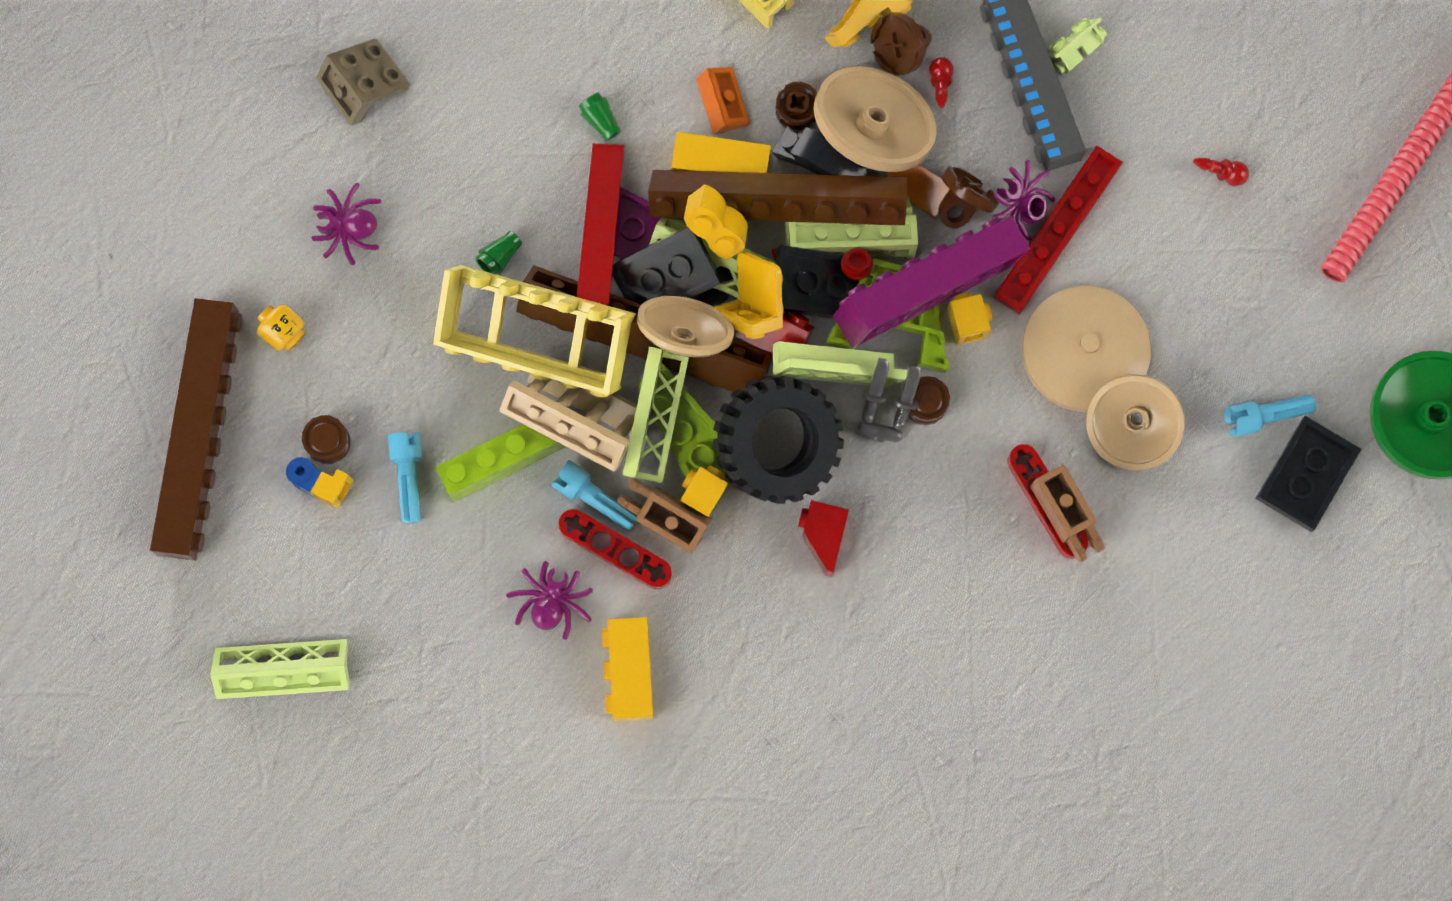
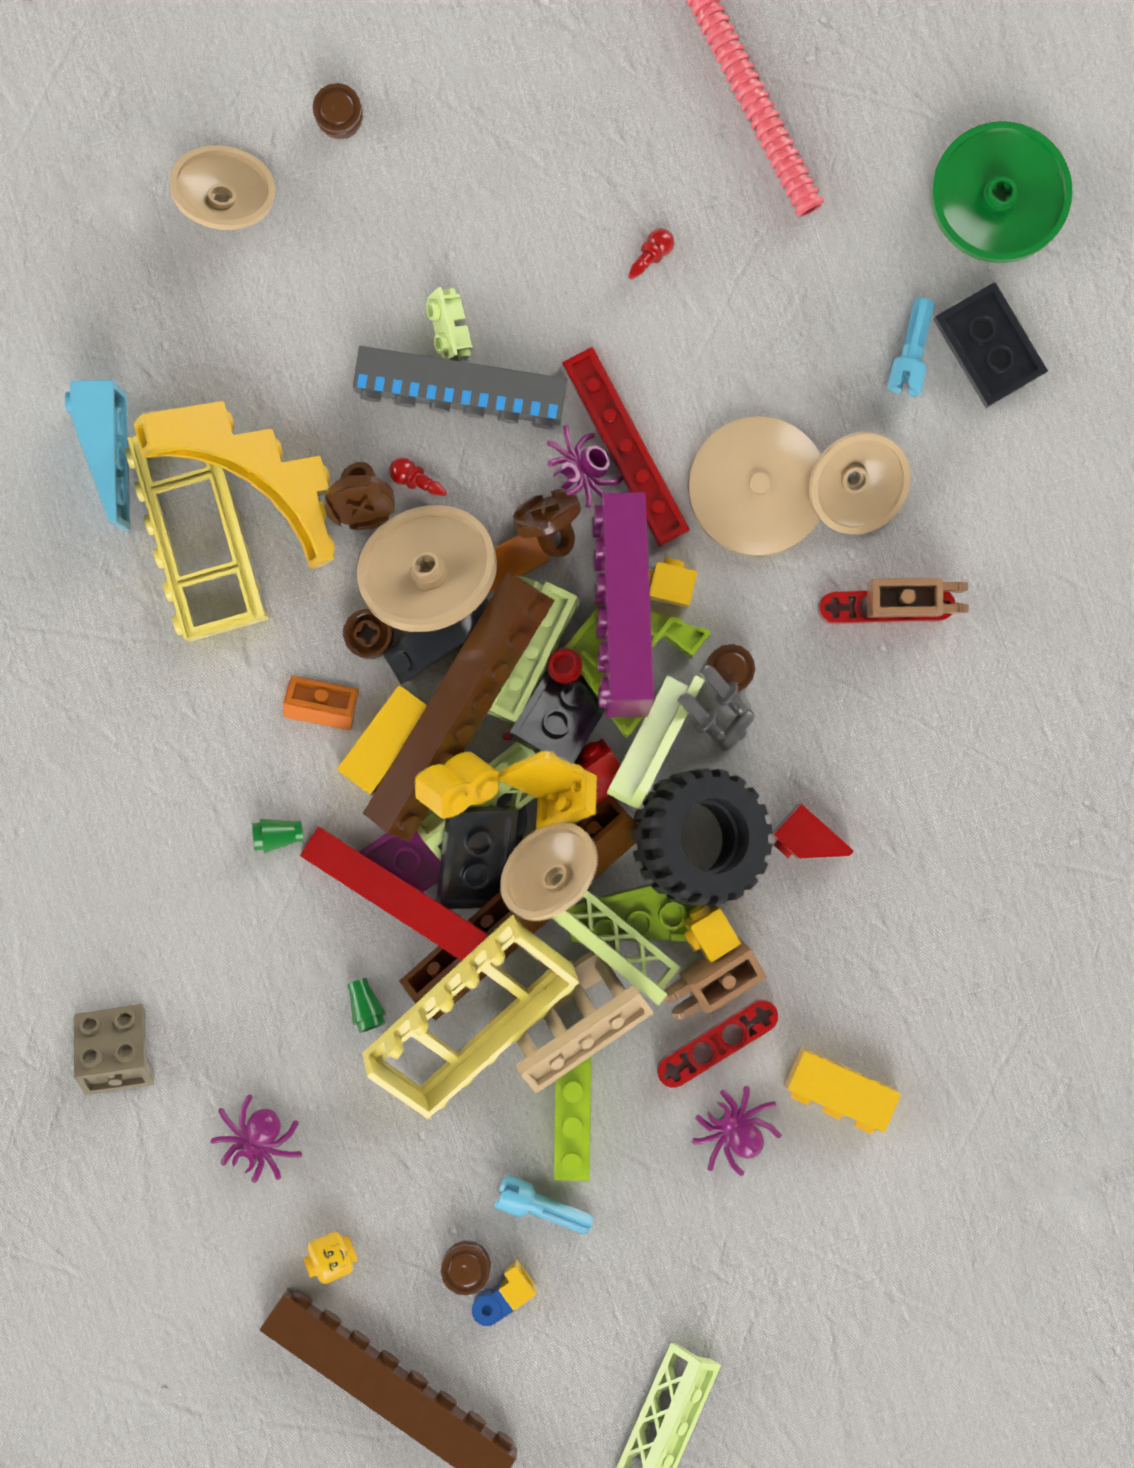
camera: 55 degrees left, 10 degrees up
(575, 484) = (635, 1049): medium azure piece -> none

